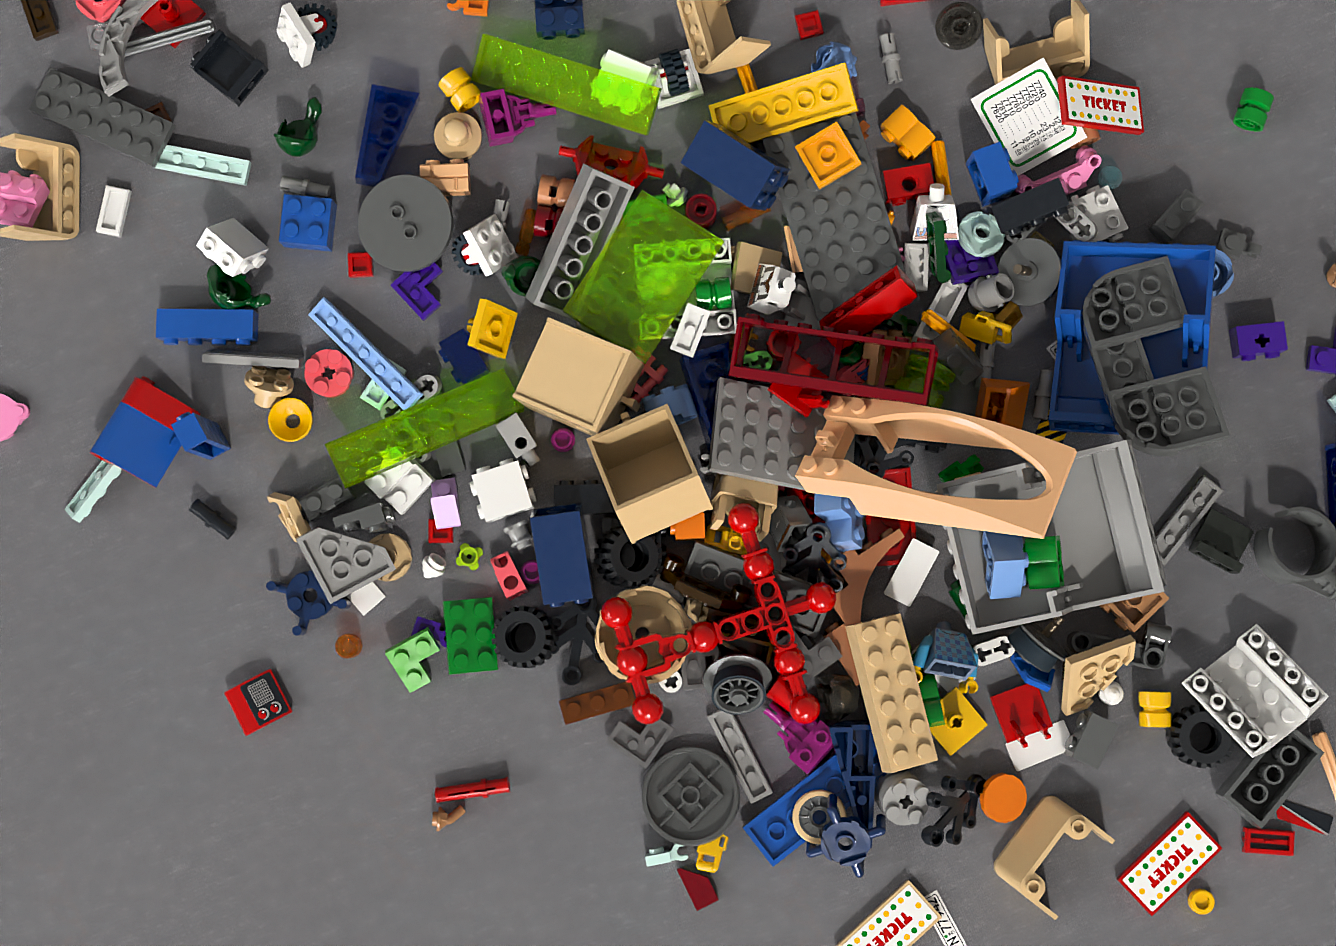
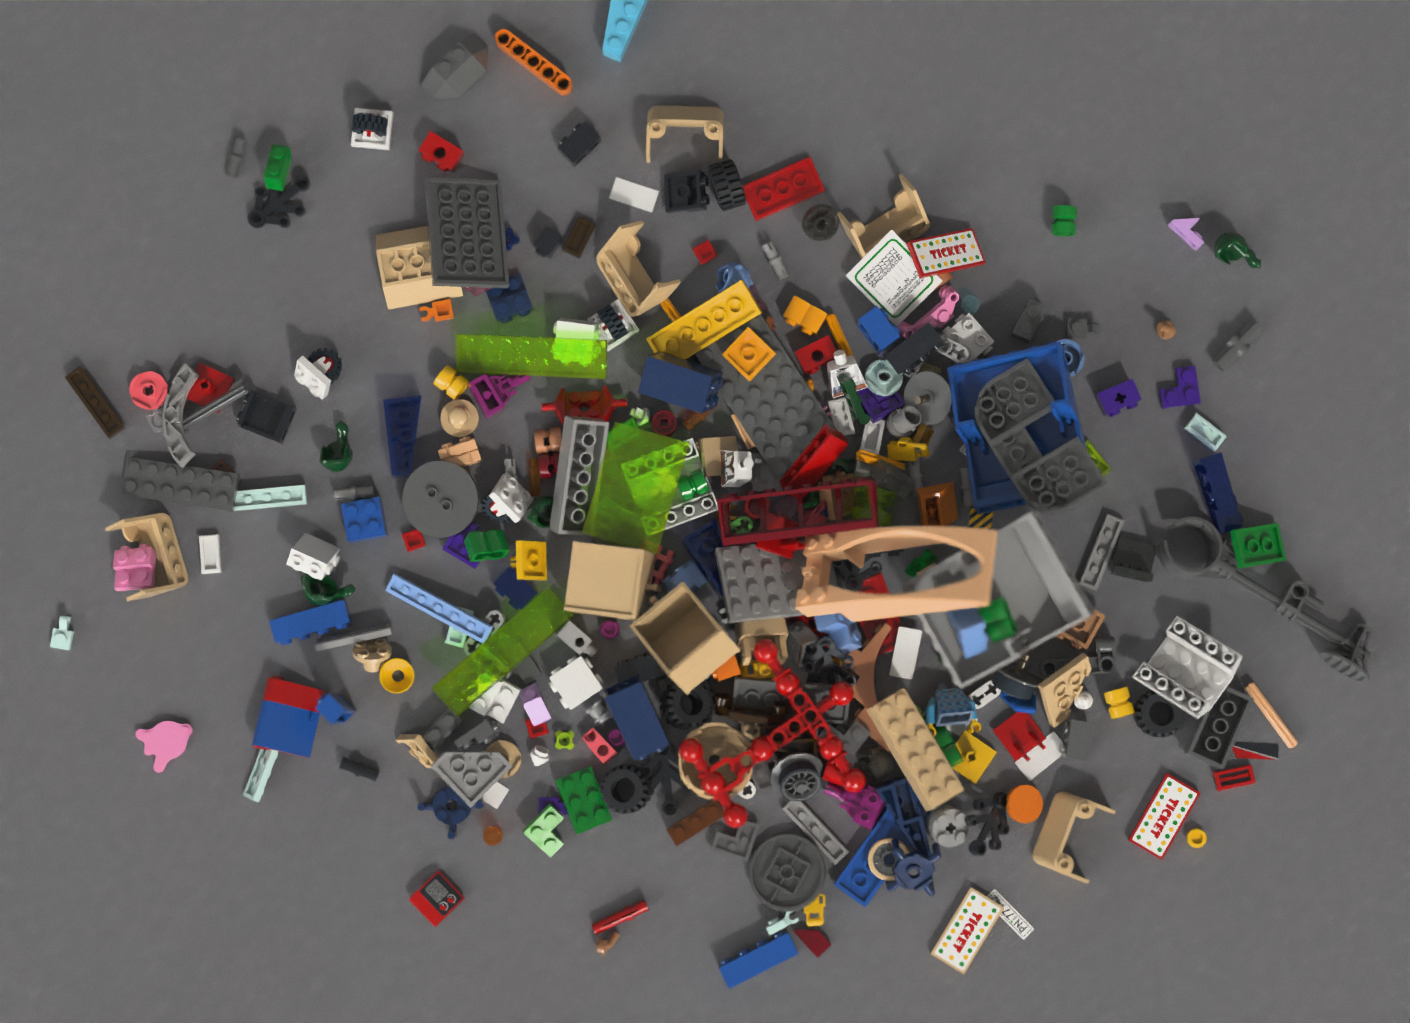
camera: 15 degrees left, 0 degrees up
(316, 367) = (425, 632): coral plate -> none
(444, 295) = (486, 545): none -> green brick
(624, 891) = (757, 960): none -> blue brick
(690, 330) = (683, 518): white plate -> none

